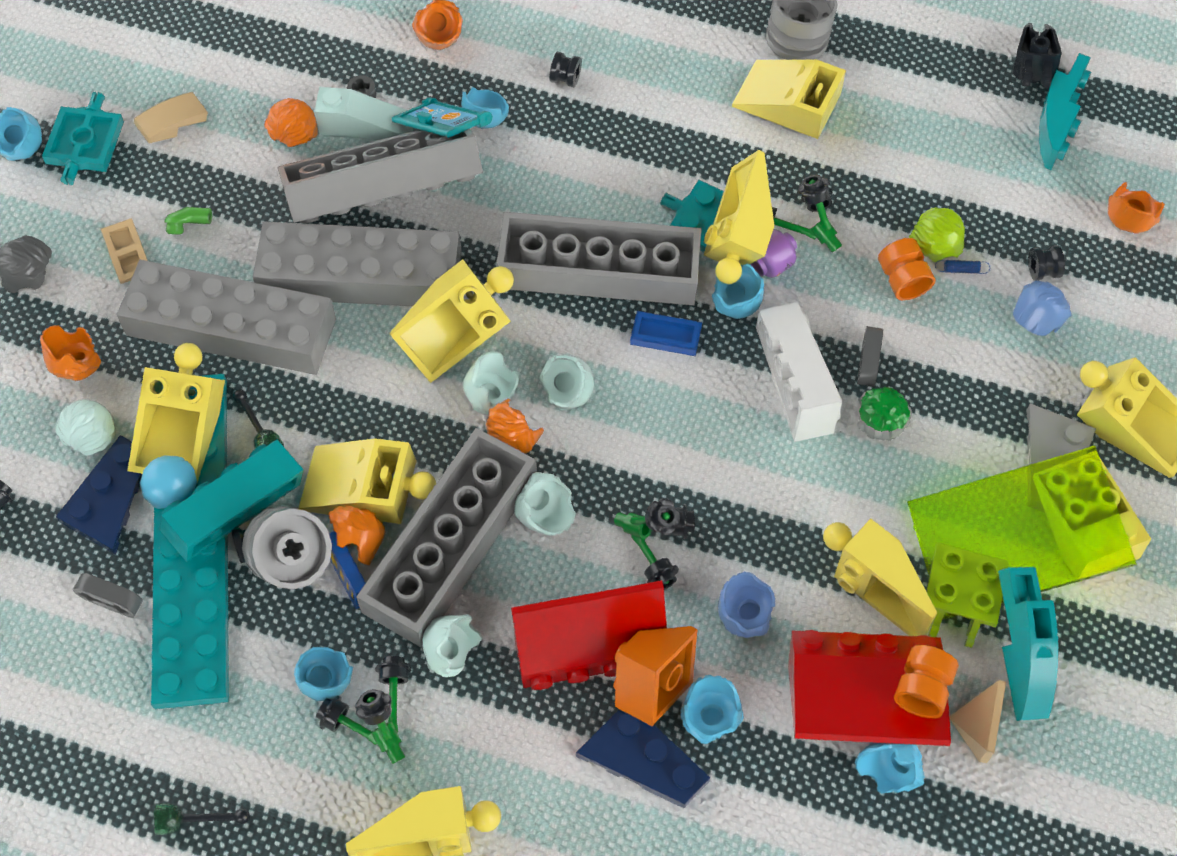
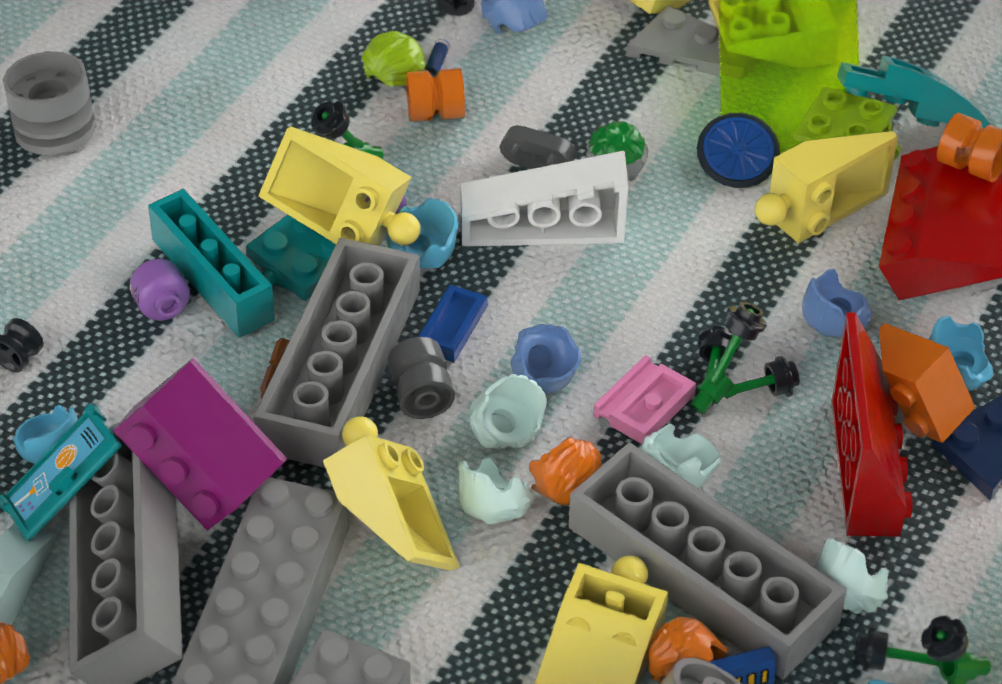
camera: 80 degrees left, 15 degrees down
(447, 177) = (199, 444): none -> magenta slope
(594, 317) = (421, 378): none -> dark grey wheel
(613, 477) = (644, 399): none -> bright pink plate
(629, 397) = (546, 356): none -> medium blue hair
(640, 138) = (159, 289): none -> medium lavender head
(668, 159) = (211, 263): none -> teal brick
(792, 93) = (150, 138): light yellow slope -> none
(922, 509) = (737, 150): none -> blue wheel

